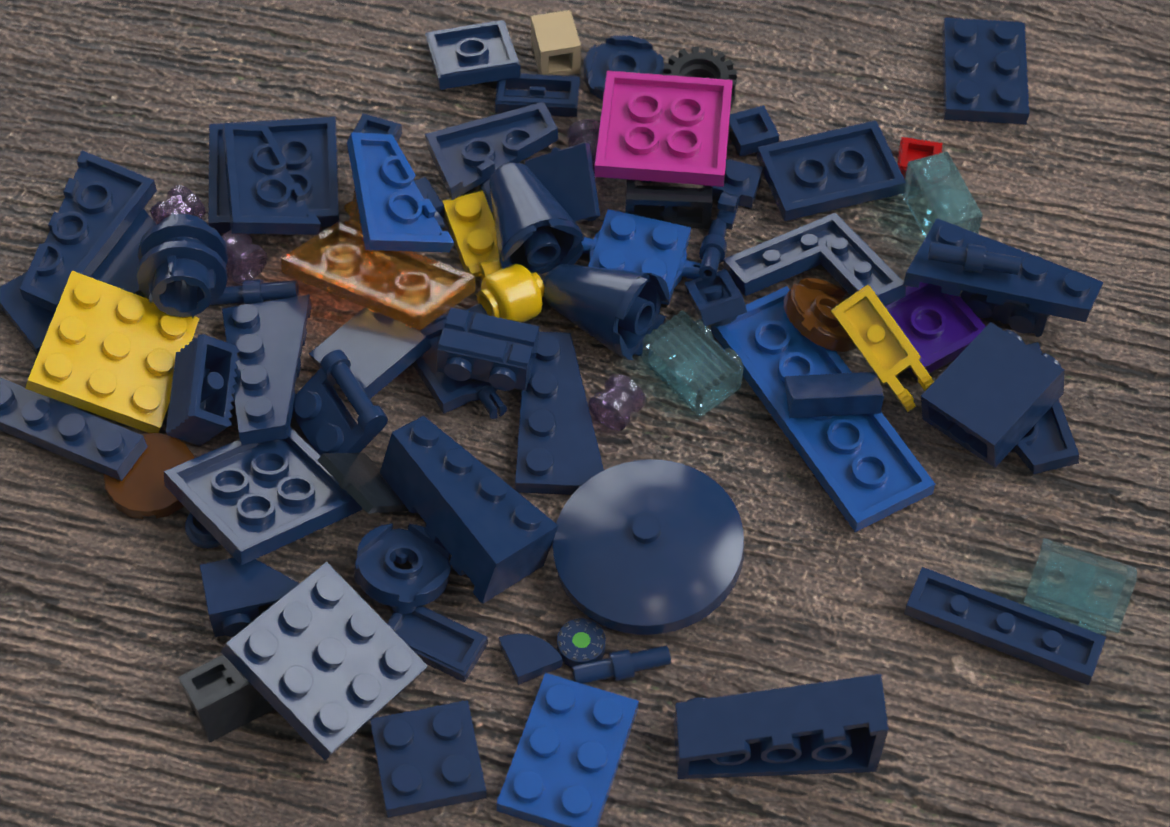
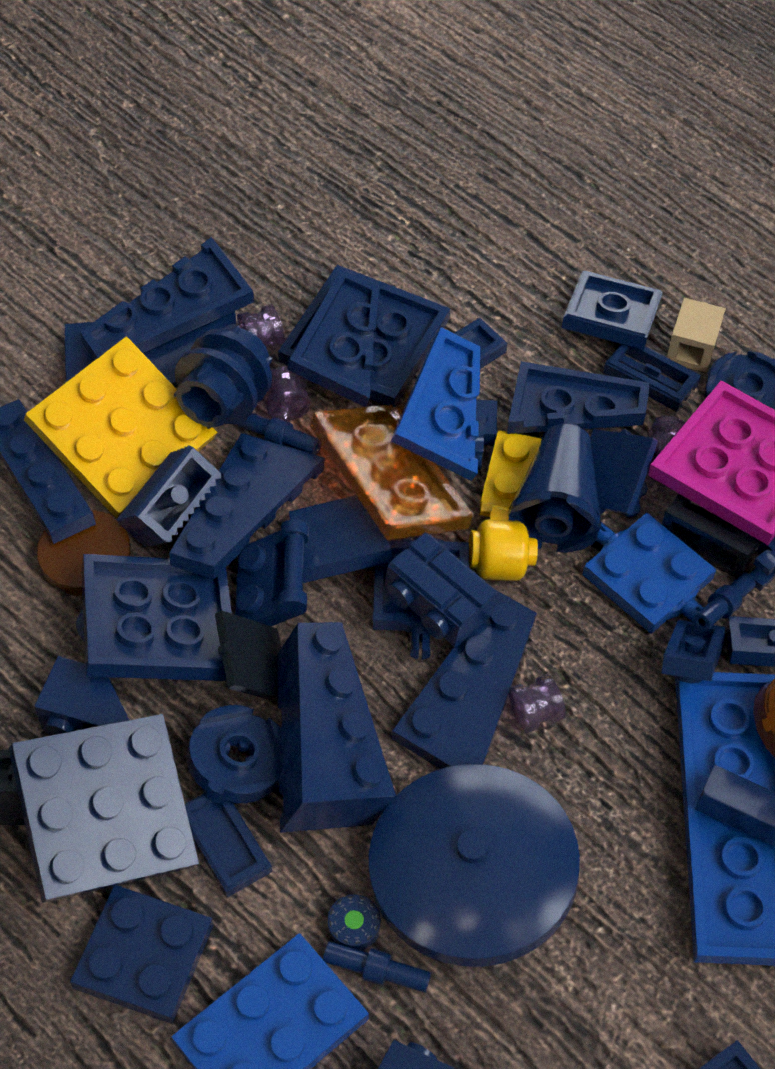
camera: 30 degrees right, 0 degrees up
(529, 656) = (297, 907): dark blue tile -> none
(608, 304) = (588, 607): dark blue cone -> none
(692, 363) = (635, 703): clear light blue brick -> none

